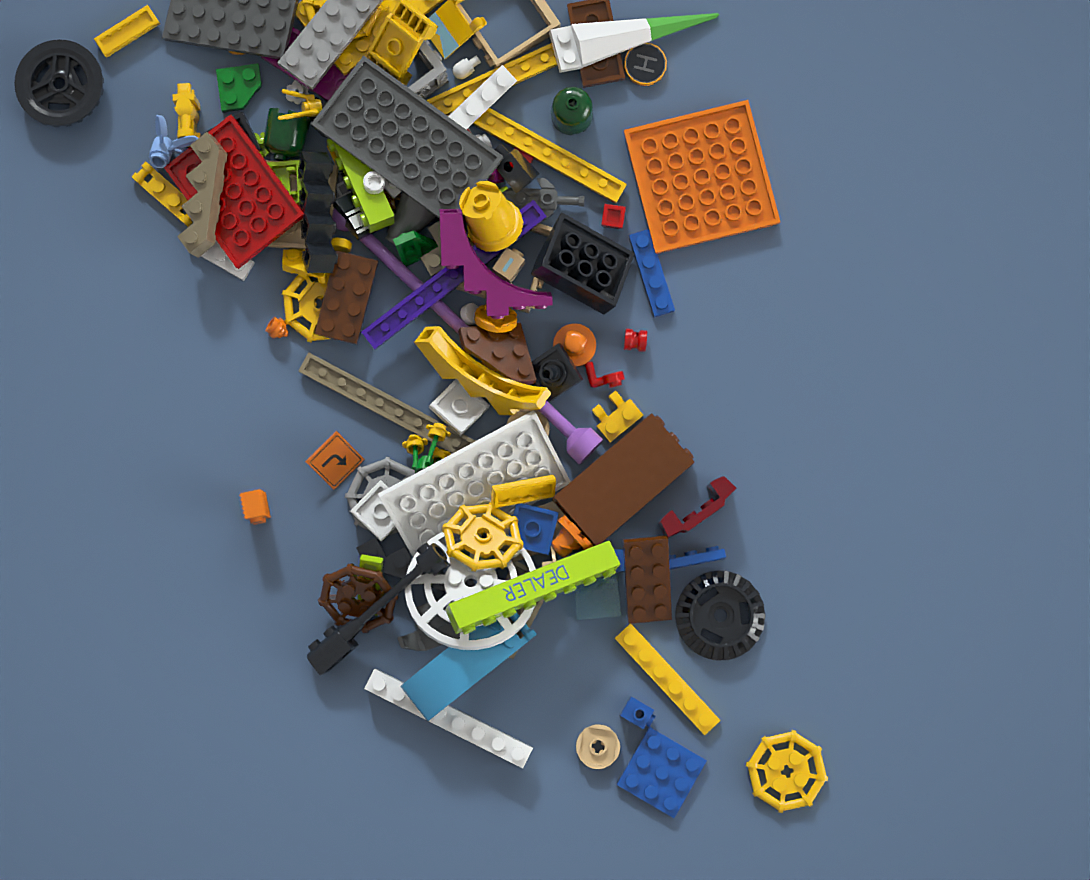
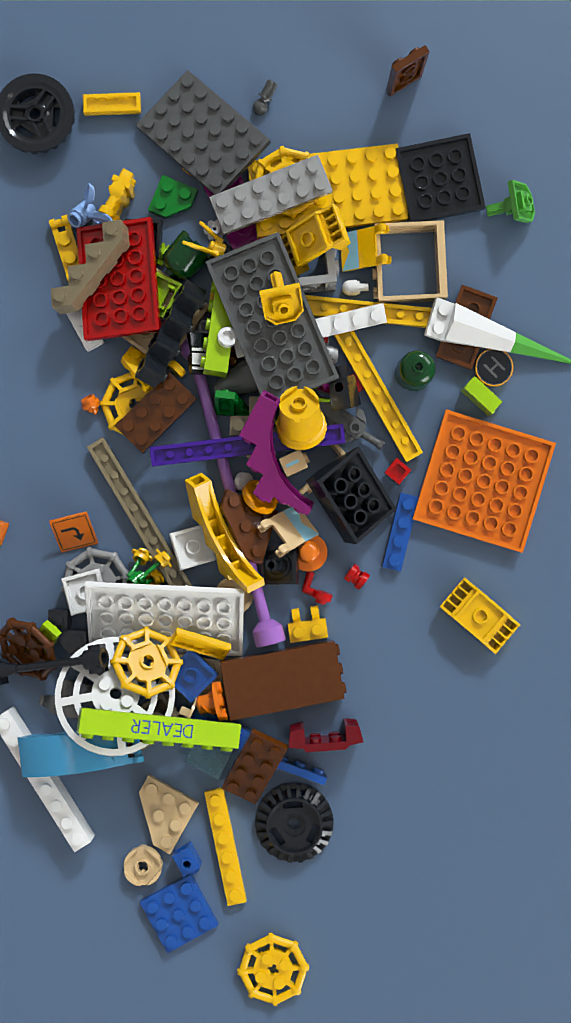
camera: 30 degrees right, 5 degrees up
(408, 117) = (281, 302): none -> yellow piece
(544, 329) = (292, 529): none -> tan flag
(589, 681) = (166, 812): none -> tan plate
(650, 98) = (481, 396): none -> lime panel
(775, 305) = (479, 615): none -> yellow plate

